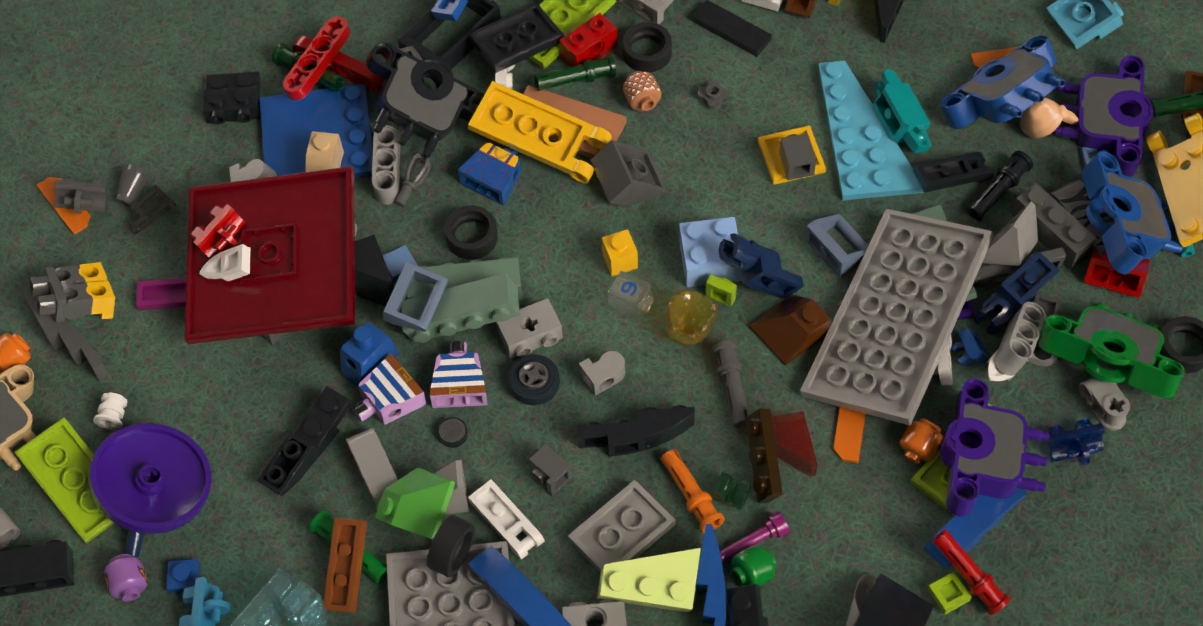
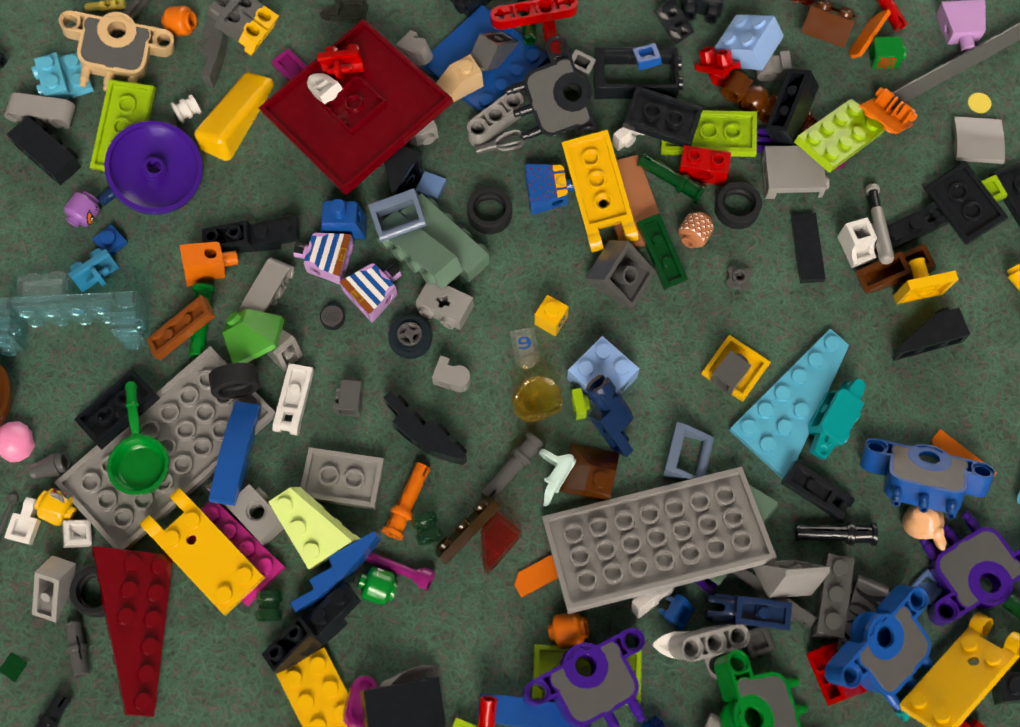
camera: 50 degrees right, 10 degrees up
(159, 376) = (232, 117): none -> yellow piece
(296, 500) = (205, 262): none -> orange torso
(319, 115) = (492, 49): none -> dark grey slope
(639, 129) = (661, 251): none -> dark green plate
(768, 334) = (563, 466): none -> light aqua piece

